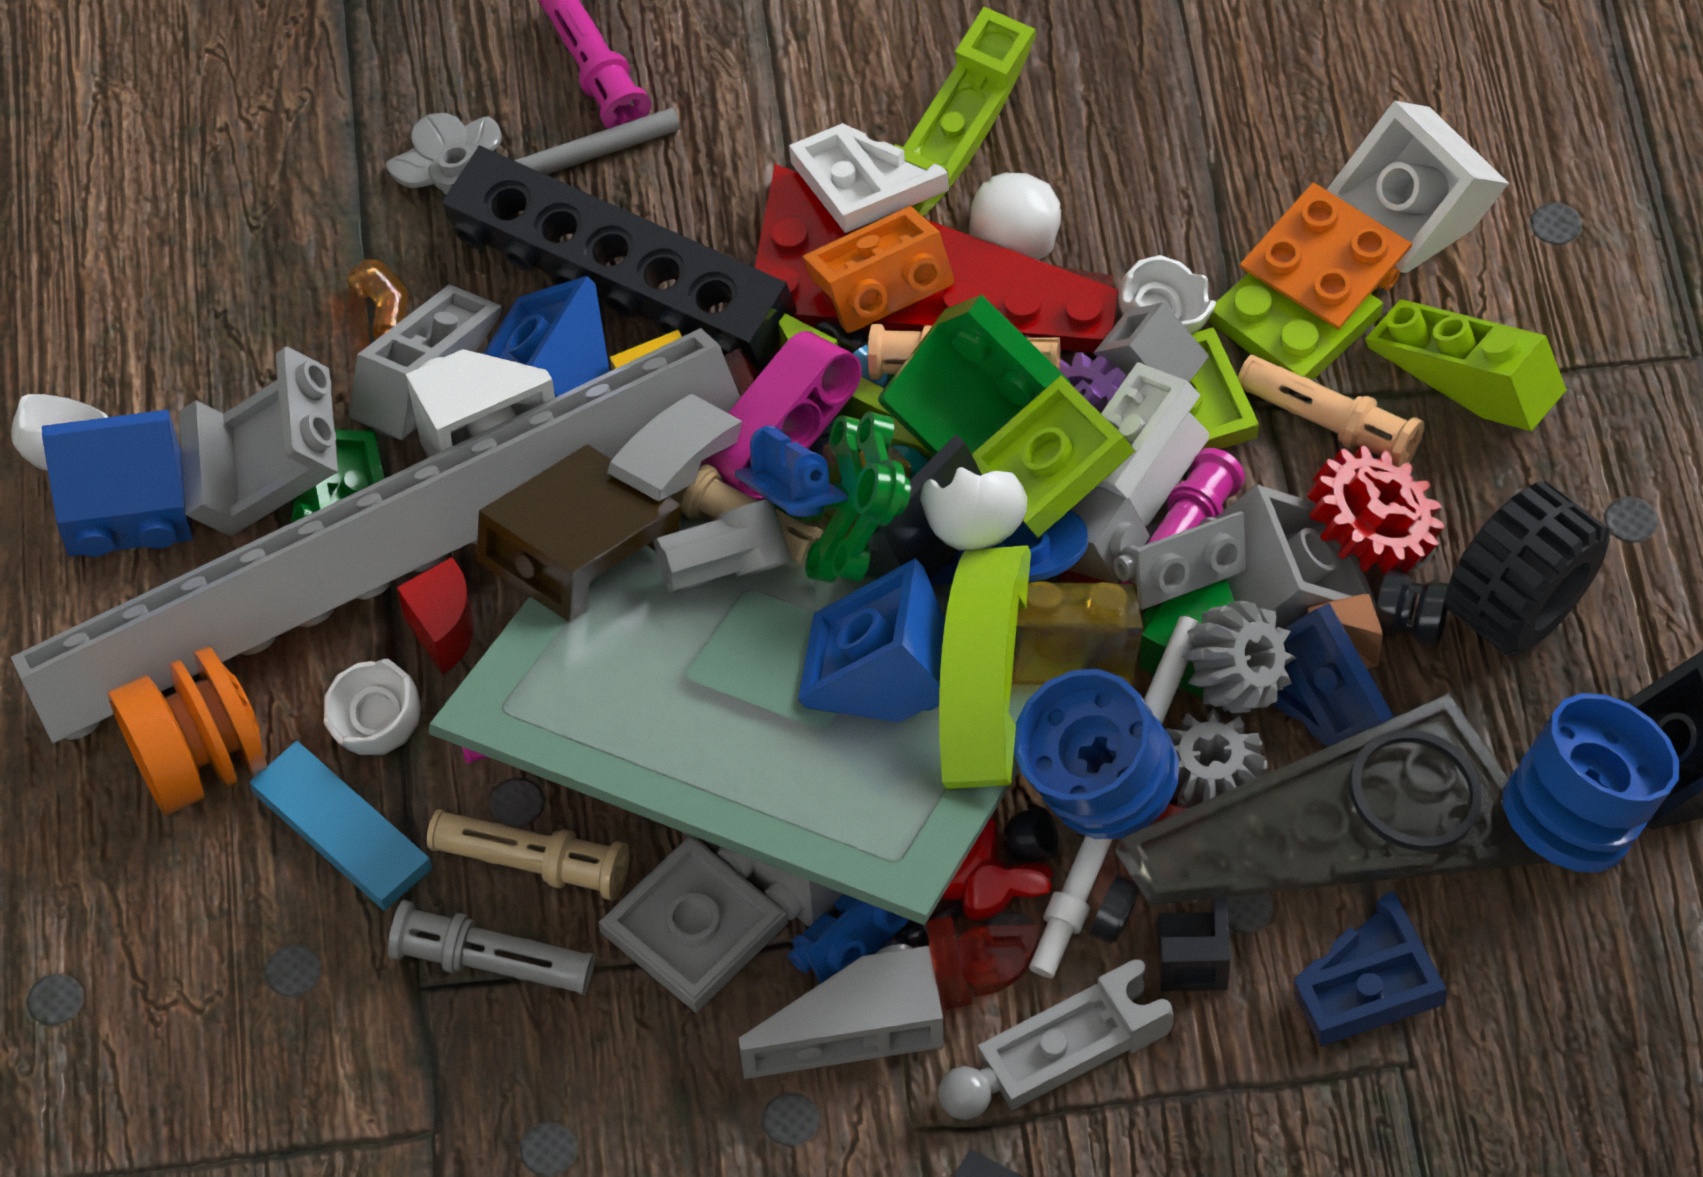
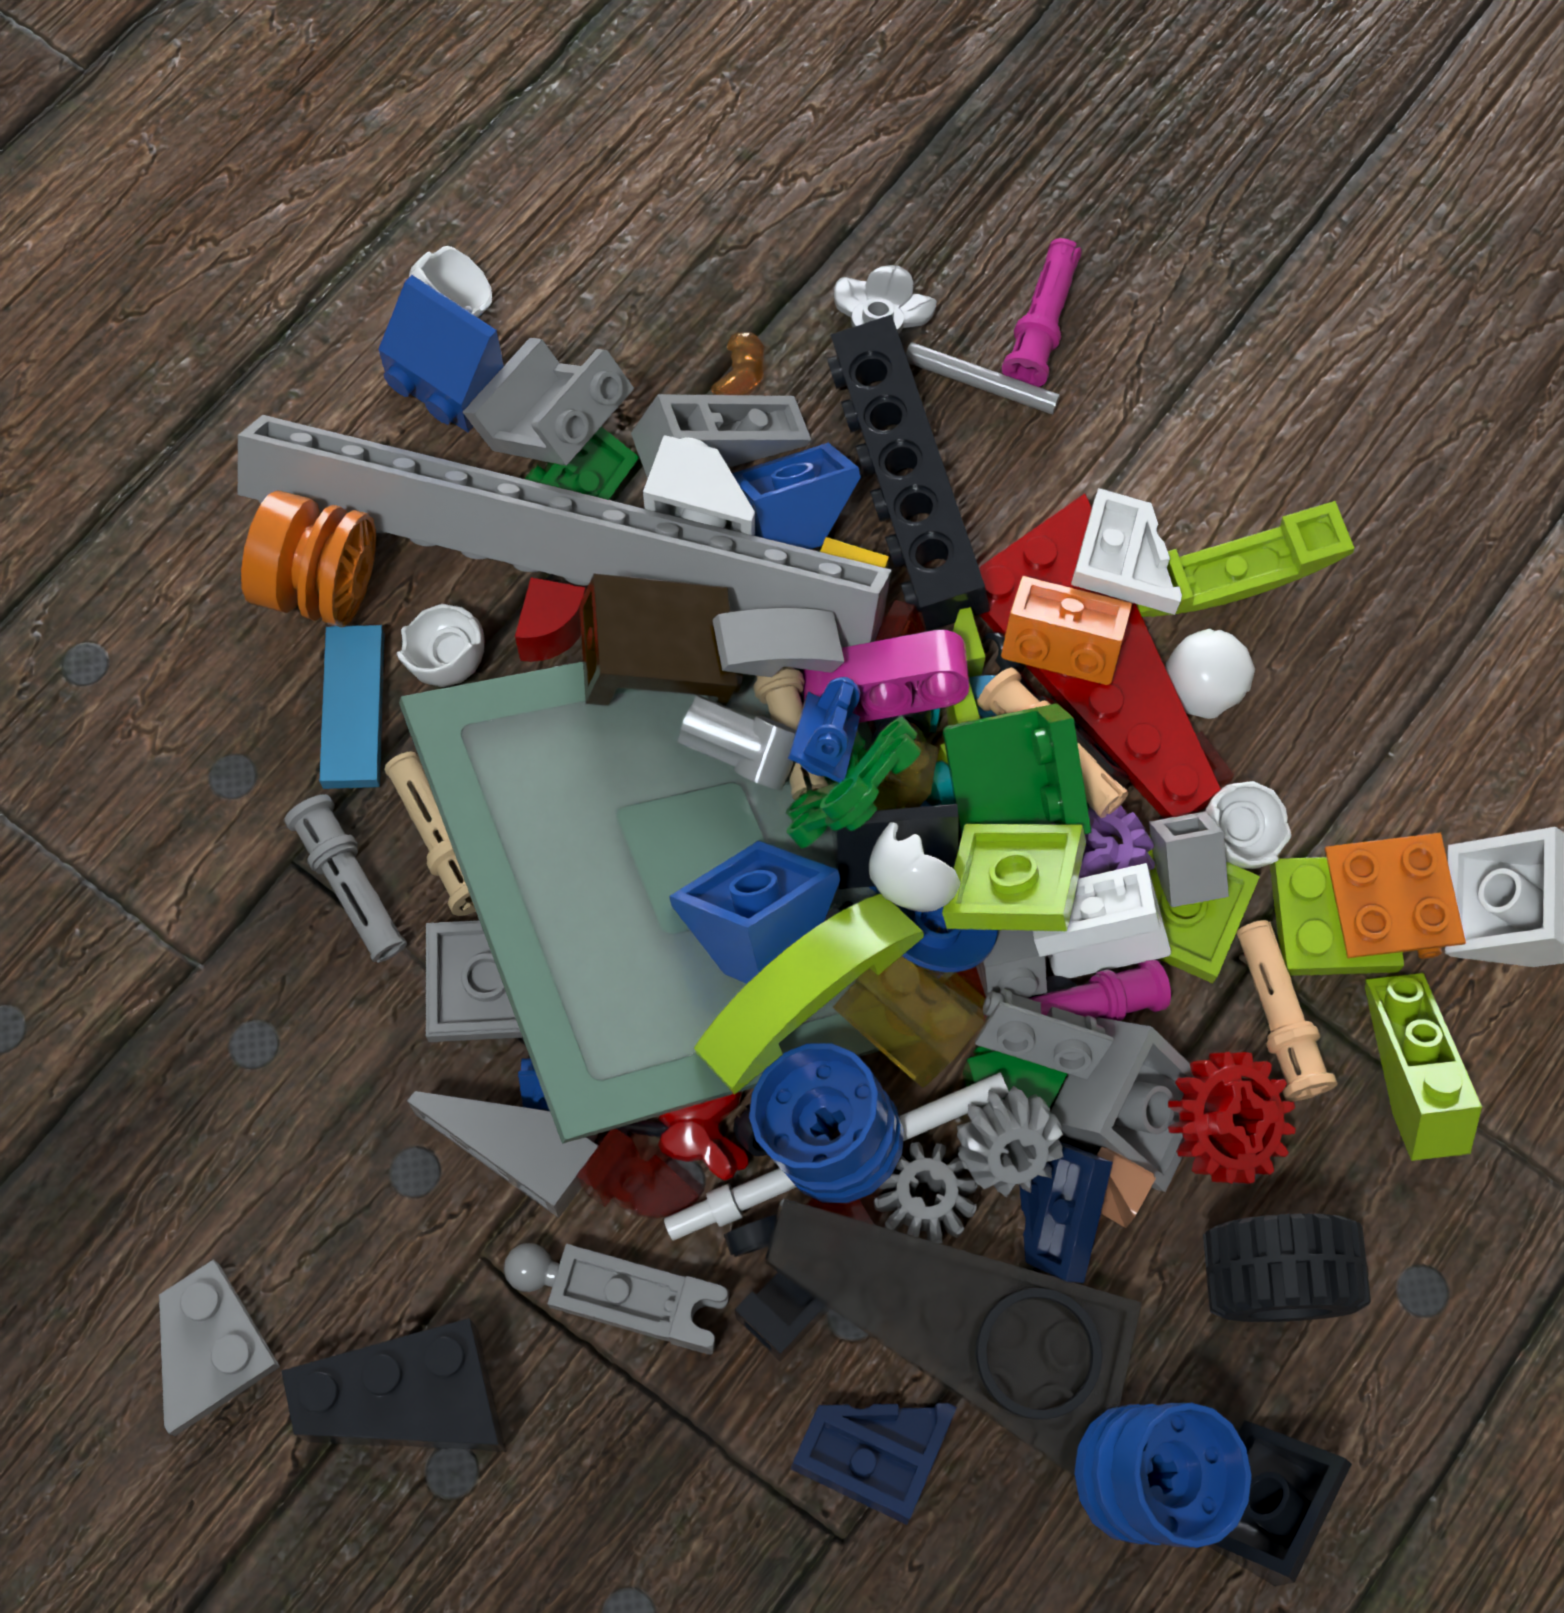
camera: 40 degrees right, 10 degrees up
(1398, 603) = (1184, 1200): black wheel -> none

